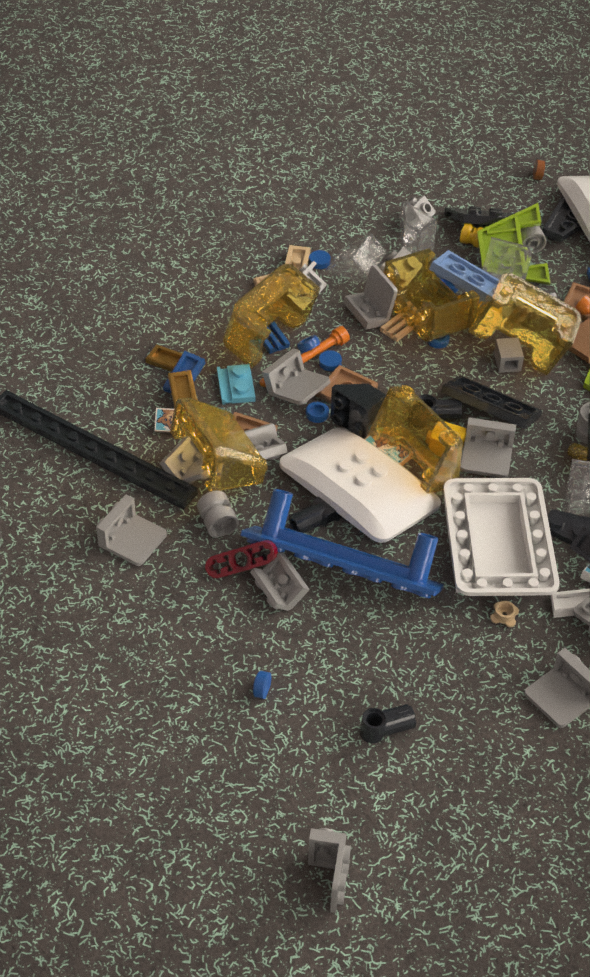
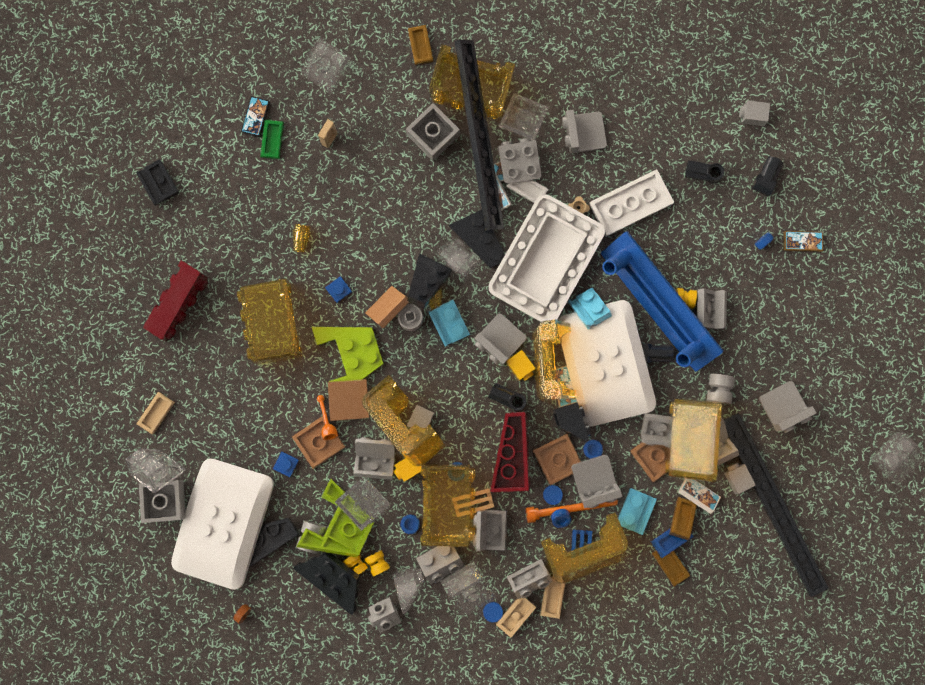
camera: 150 degrees left, 35 degrees up
(145, 447) = (739, 478): none -> light grey brick
(212, 713) = (803, 241): none -> tile
(222, 557) = (728, 337): dark red beam -> none
(303, 755) = (767, 178): none -> black piece
(317, 580) = (688, 297): none -> yellow wheel
(330, 850) = (792, 102): light grey bracket -> none
(370, 823) = (755, 113): none -> light grey brick
(391, 359) = (512, 461): none -> dark red wedge
(415, 514) = (590, 308): none -> medium azure plate
(448, 647) = (631, 202): none -> white plate
(454, 244) = (377, 568): none -> yellow wheel
(463, 274) = (409, 501): medium blue plate -> none
(491, 401) = (466, 381): black tile -> none
(551, 441) = (449, 323): none -> medium azure plate

